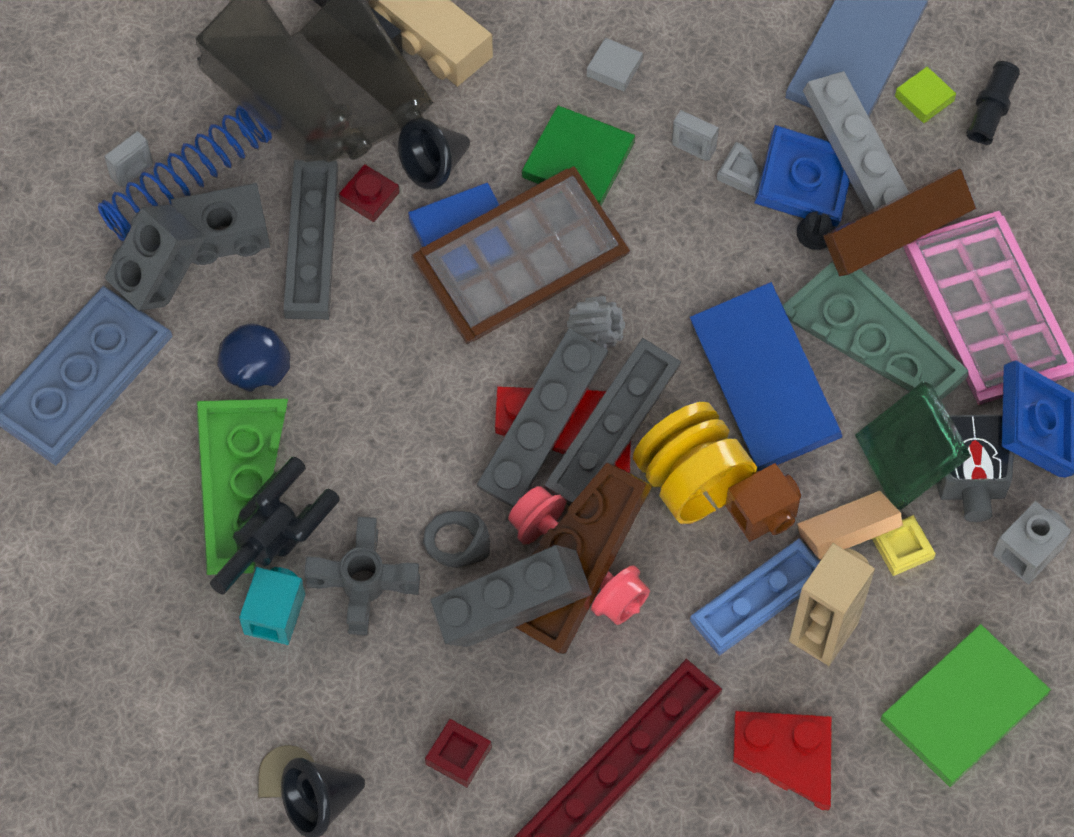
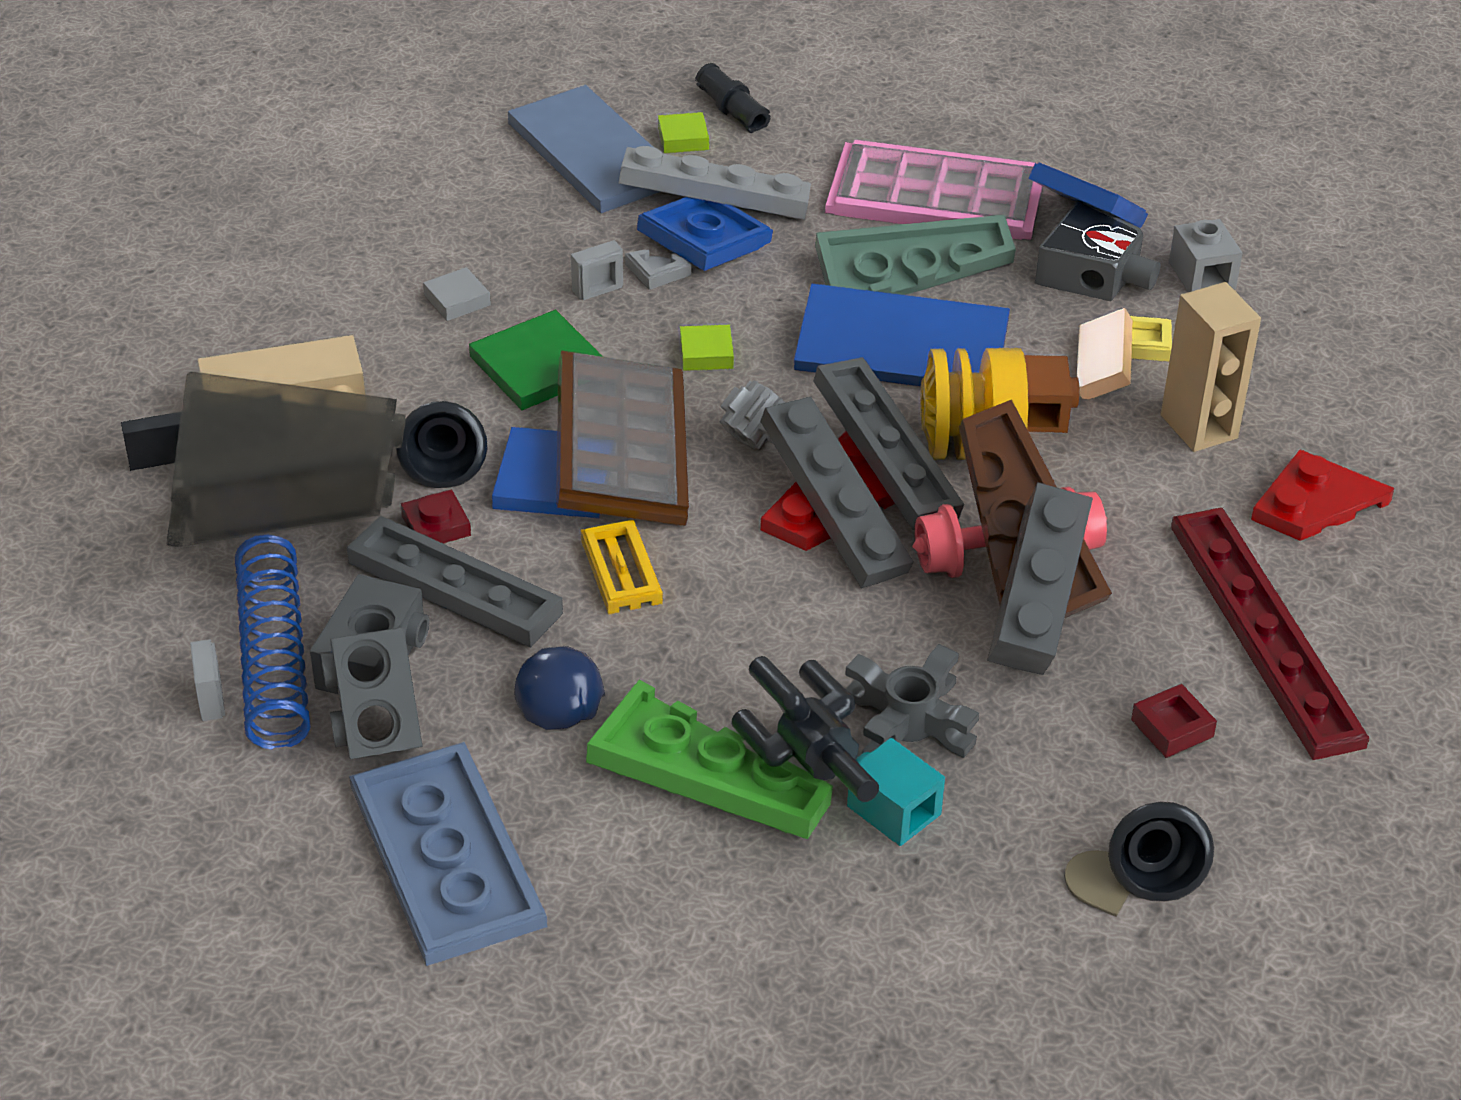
camera: 60 degrees left, 20 degrees down
(372, 353) = (629, 595): none -> yellow tile
(475, 553) = (924, 599): dark grey piece -> none
(669, 253) = (706, 347): none -> lime tile
(755, 597) = (1135, 447): medium blue tile -> none
(811, 230) = (768, 248): black piece -> none
(899, 222) = (818, 186): reddish brown tile -> none
(912, 445) = (1060, 271): clear green tile -> none
(965, 705) = (1338, 370): bright green tile -> none

